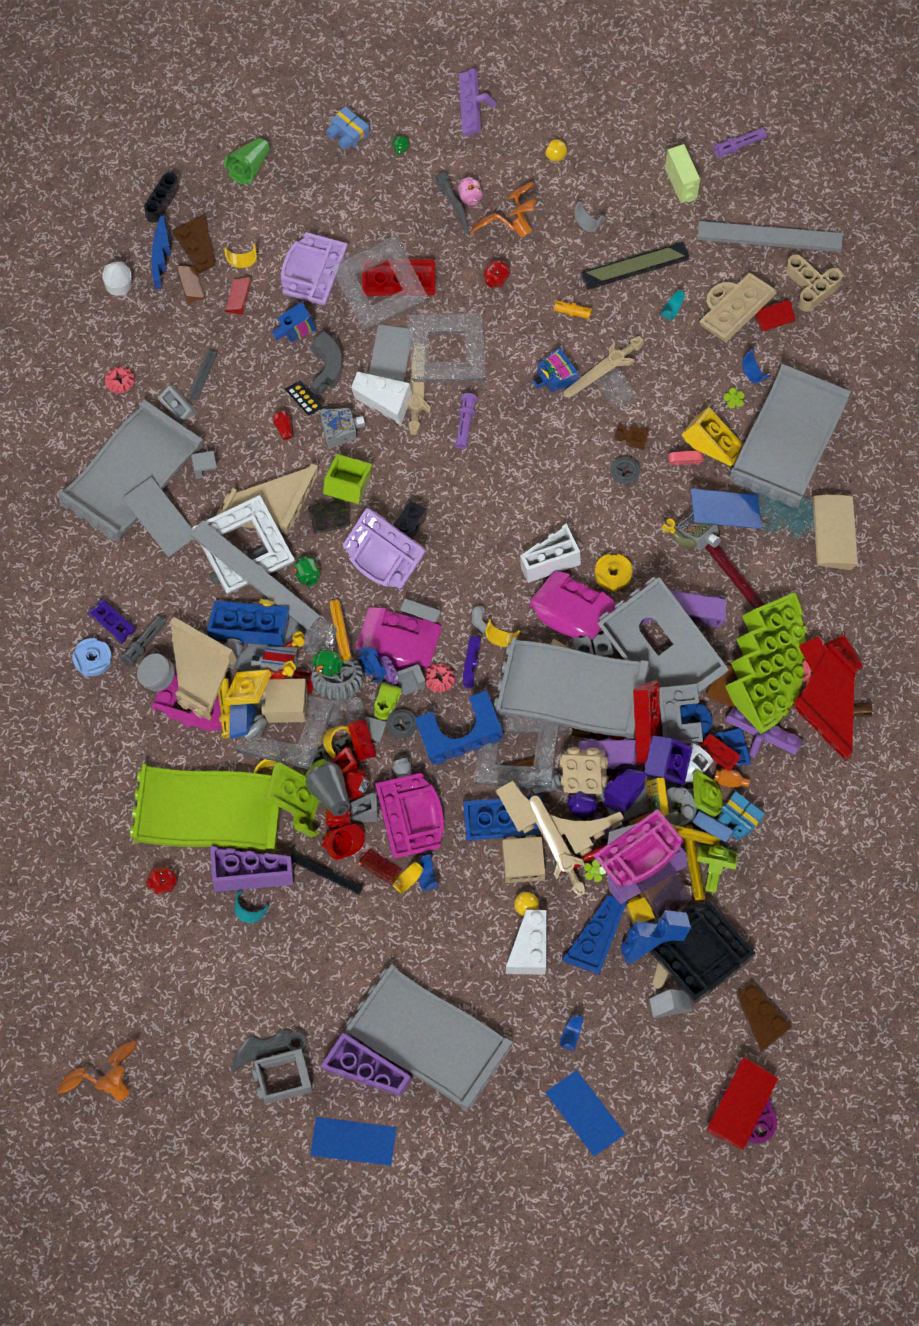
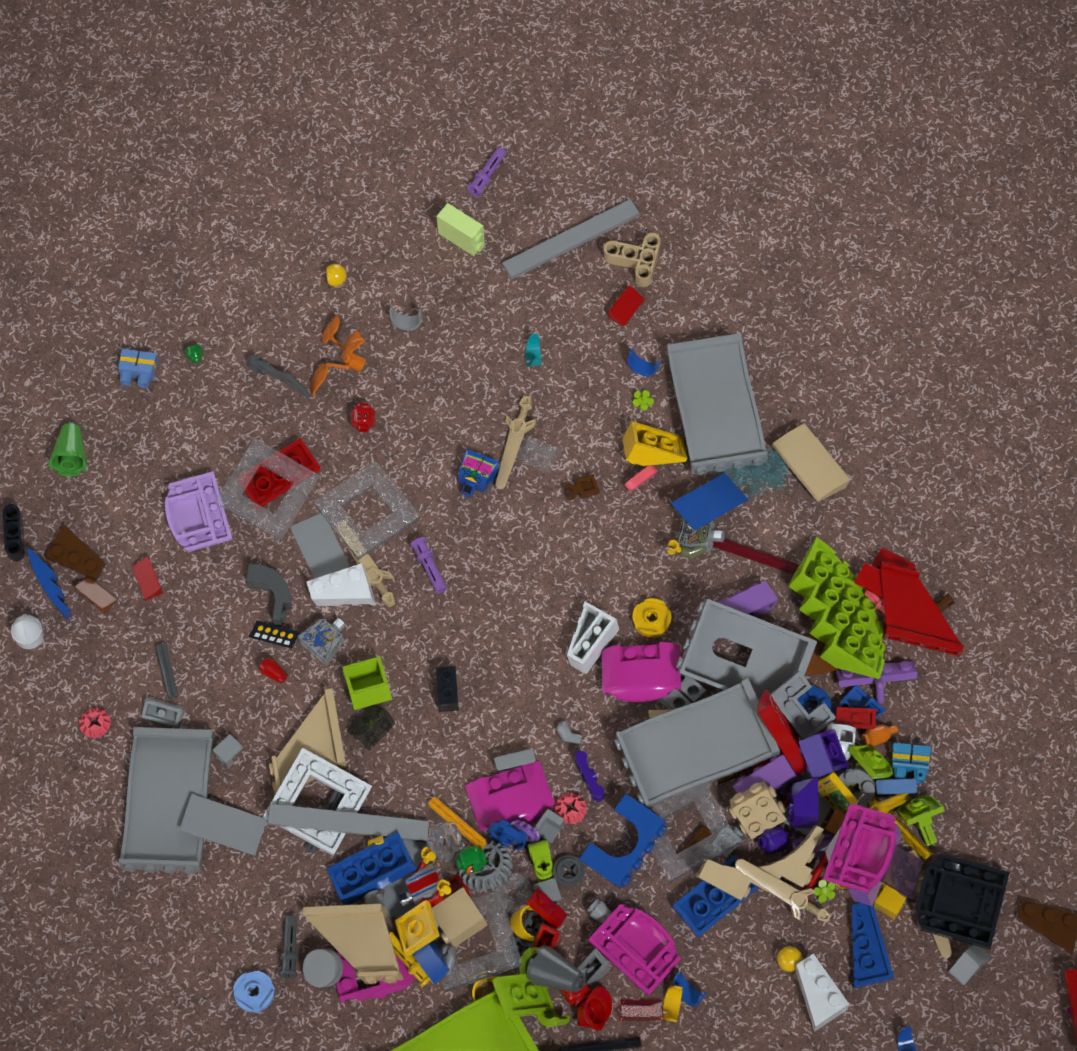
camera: 30 degrees left, 0 degrees up
(111, 621) = (247, 947): dark purple plate -> none
(241, 260) = (128, 543): yellow helmet -> none
(294, 324) = (221, 567): blue torso -> none
(307, 571) = (388, 788): green head -> none
(356, 784) = (570, 949): red head -> none
(382, 550) = (444, 727): lavender slope -> none
(469, 191) = (286, 357): bright pink head -> none
(470, 102) = (229, 276): medium lavender plate -> none
(498, 636) = (599, 737): yellow helmet -> none
(523, 859) = (758, 921): tan piece -> none
(572, 309) = (450, 407): light orange pin -> none
(621, 464) = (602, 516): dark grey gear -> none
(635, 265) = (475, 335): tile -> none
(647, 936) = (913, 918): blue arch -> none
(735, 305) = (587, 318): tan plate -> none

